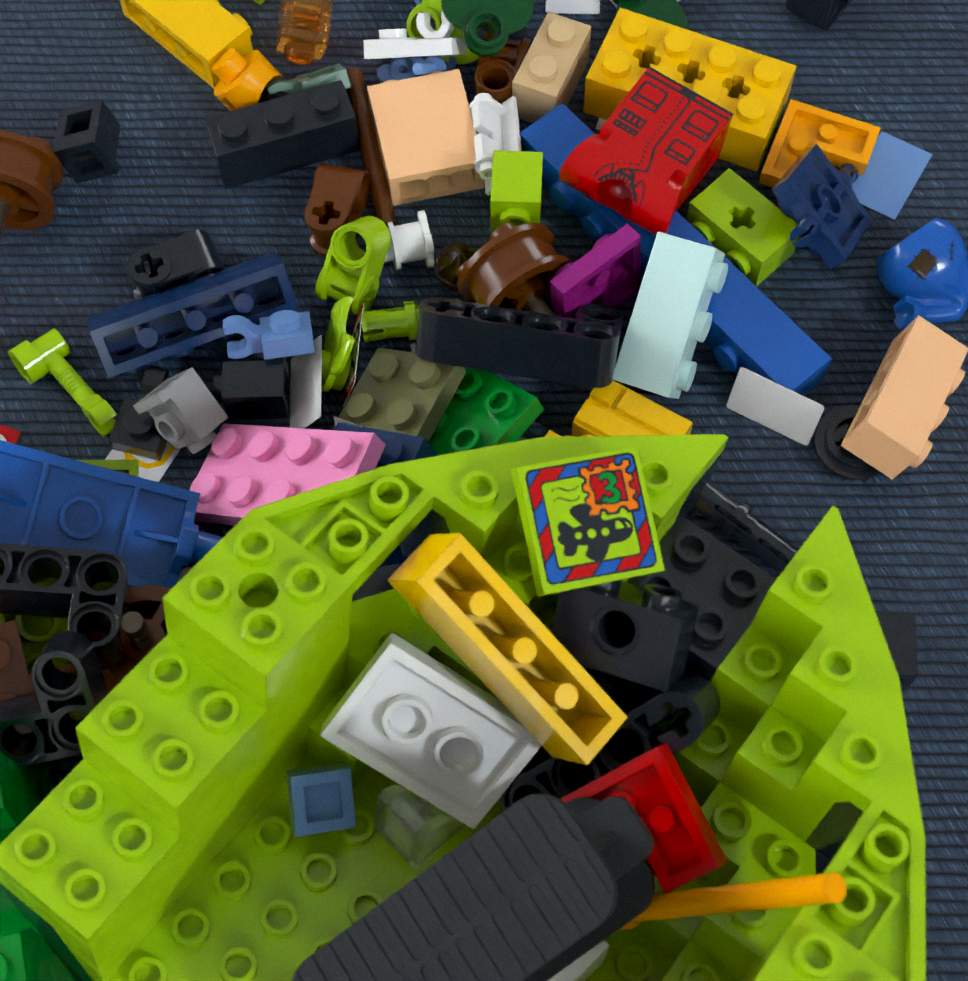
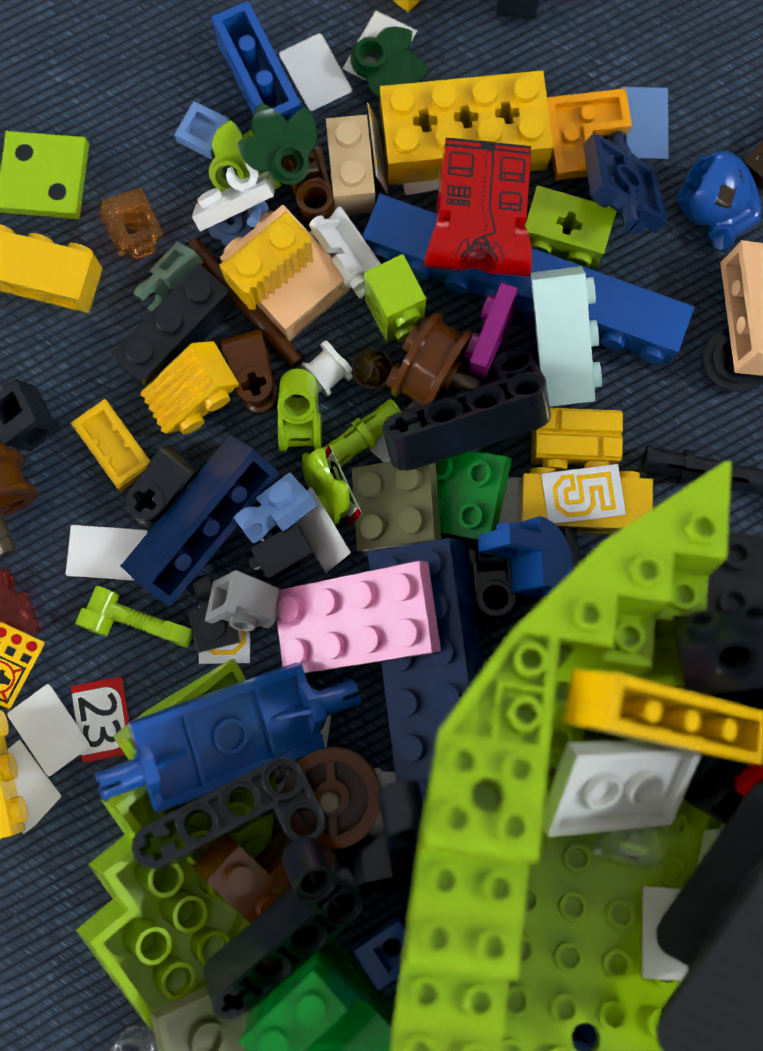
camera: 30 degrees left, 15 degrees up
(74, 300) = (101, 551): none -> white sticker
(155, 205) = (112, 444): none -> yellow plate
(242, 78) = (114, 299): light orange piece -> none
(261, 188) = (190, 388): none -> yellow brick
(321, 799) = (557, 865): medium blue plate -> none
(407, 103) = (268, 260): none -> yellow brick
(577, 79) = (377, 149): none -> white sticker
(587, 520) = (682, 596): tile -> none
(774, 406) = (668, 363): white sticker -> none

